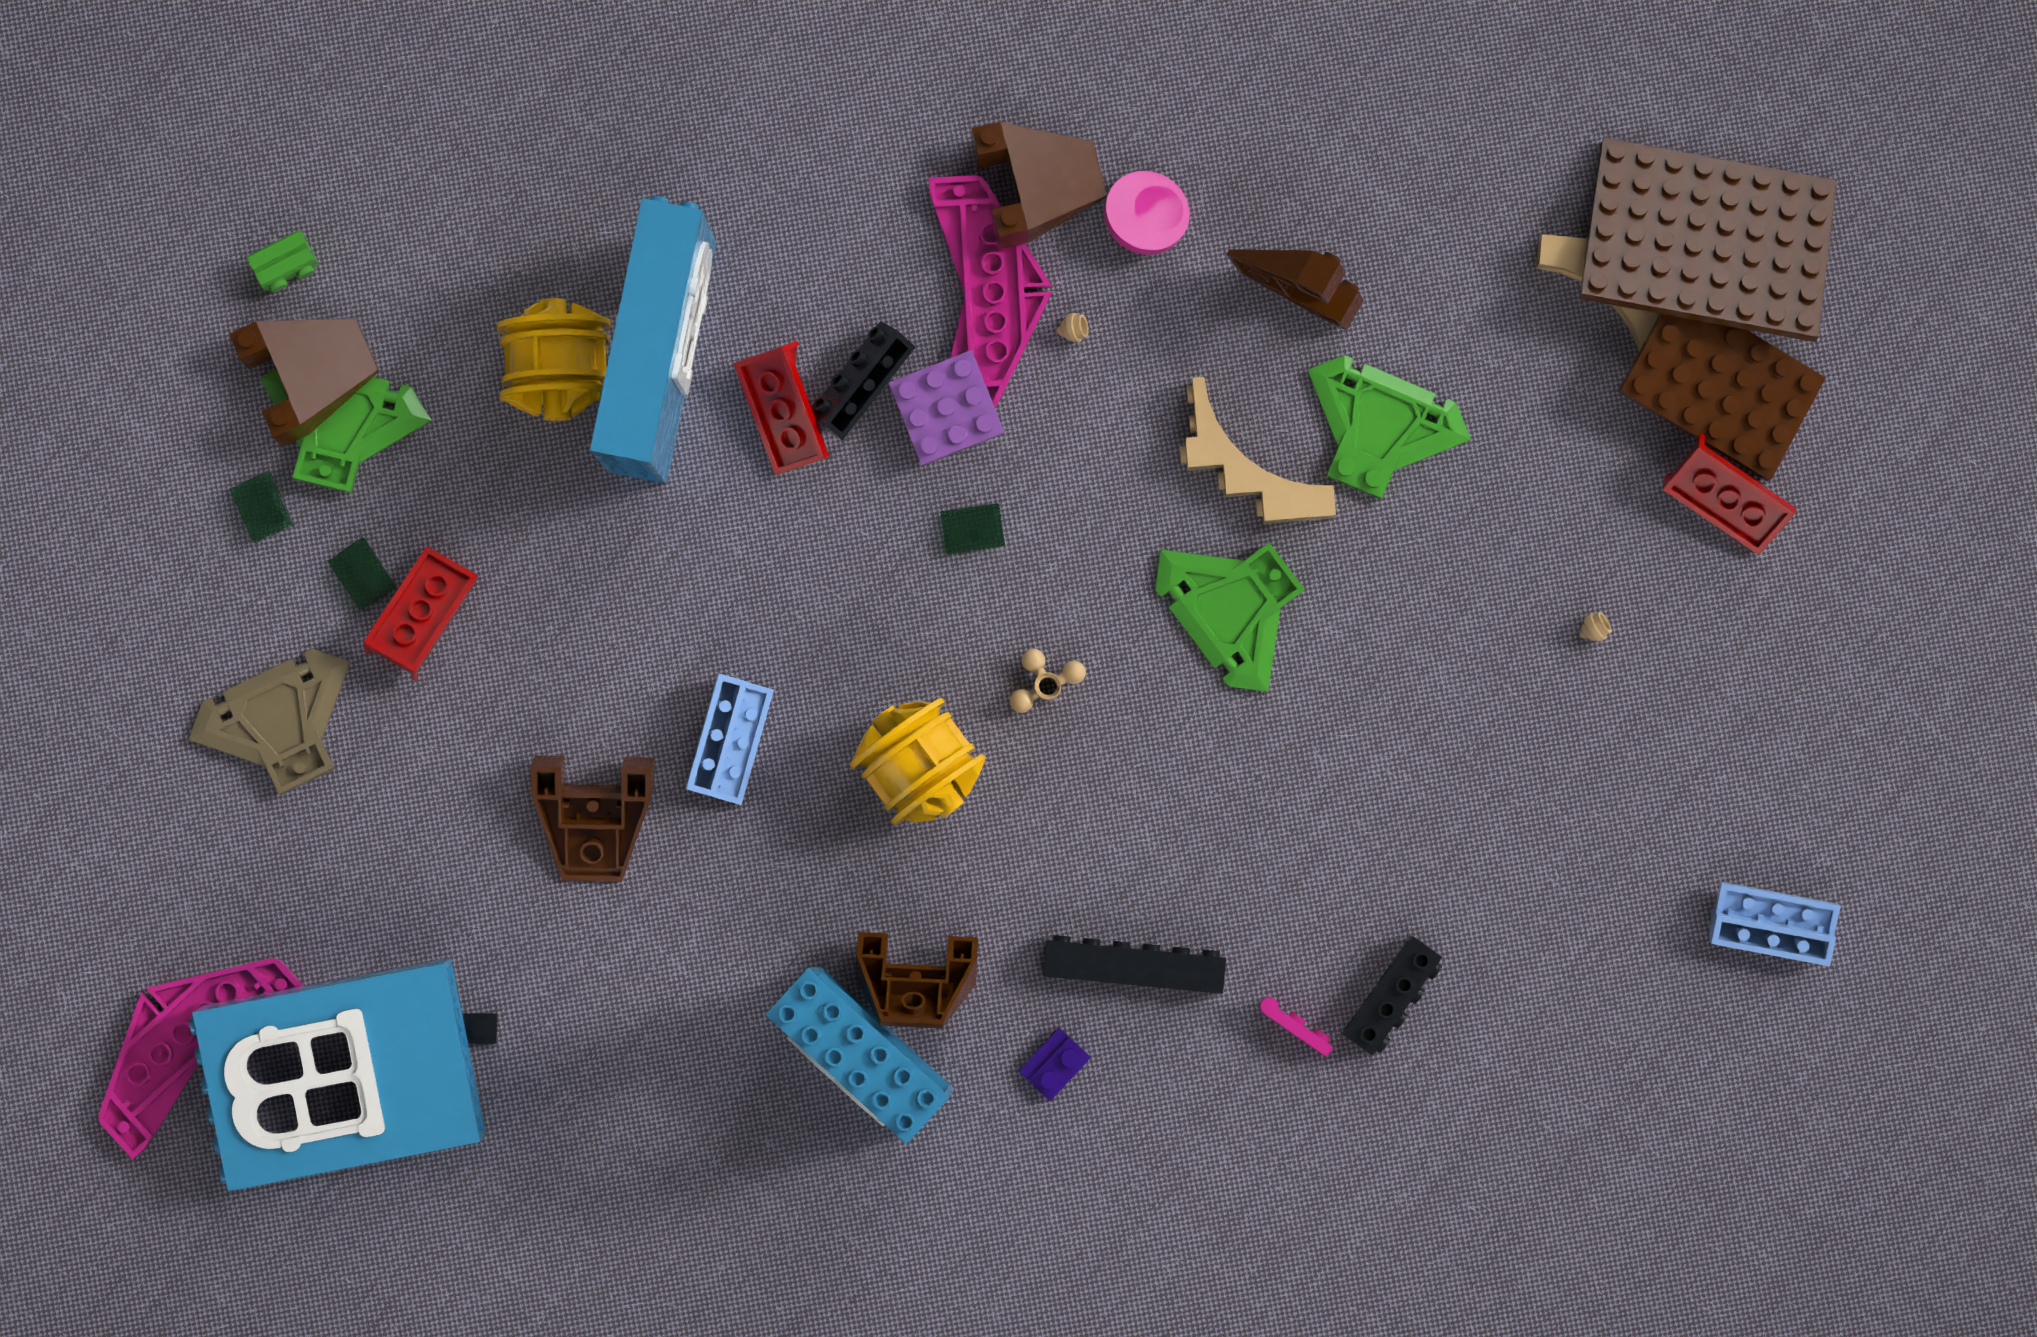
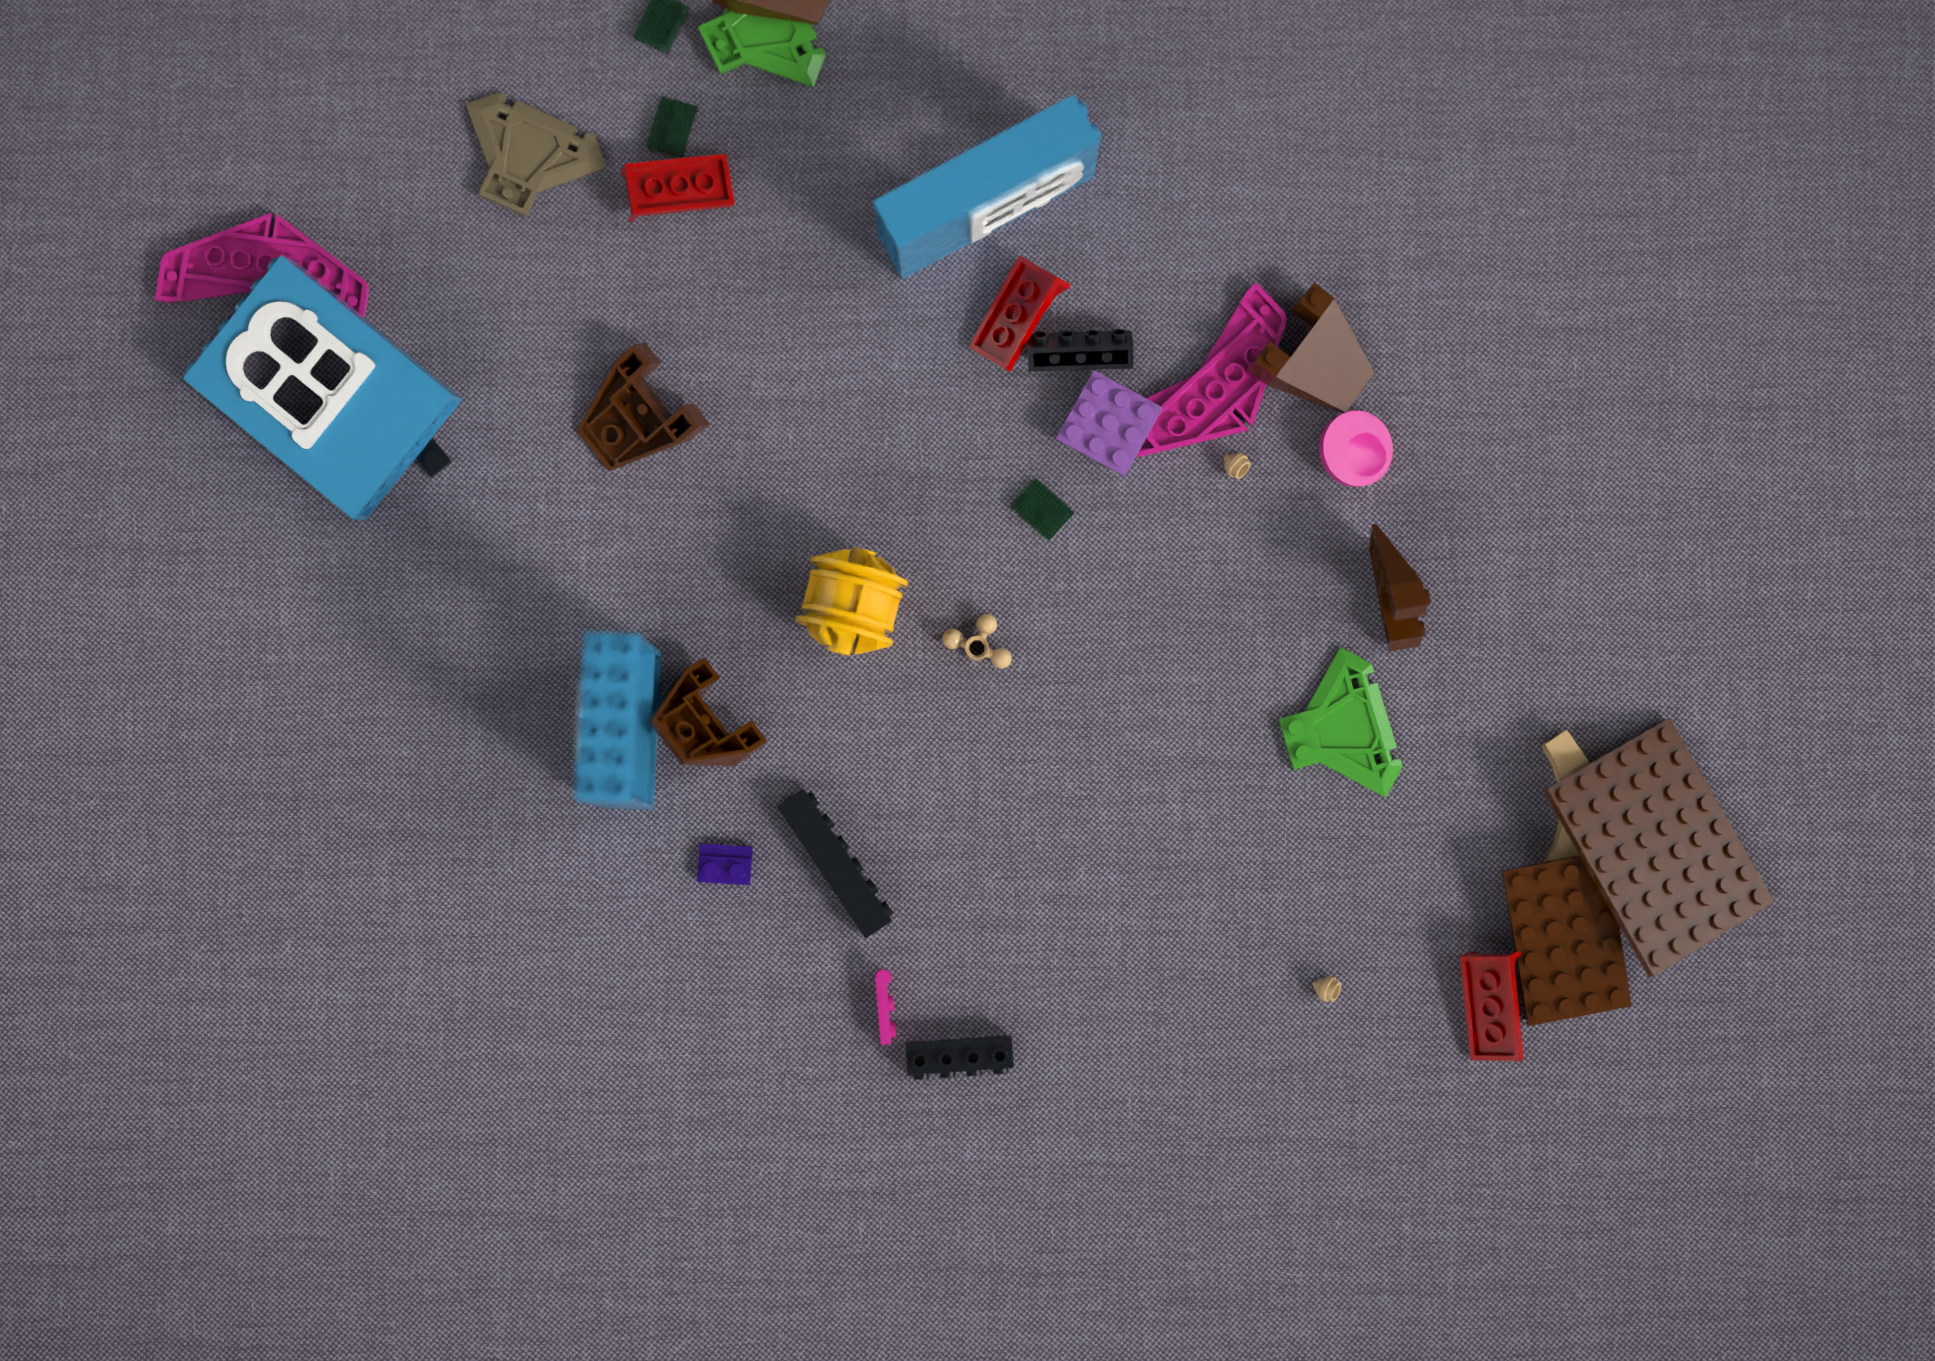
camera: 50 degrees right, 0 degrees up
(554, 359) = (920, 129): yellow wheel -> none
(729, 739) = (763, 463): light blue brick -> none
(1212, 449) = (1231, 627): tan arch -> none
(1231, 608) = (1133, 729): bright green plate -> none
(1774, 923) = (1225, 1278): light blue brick -> none

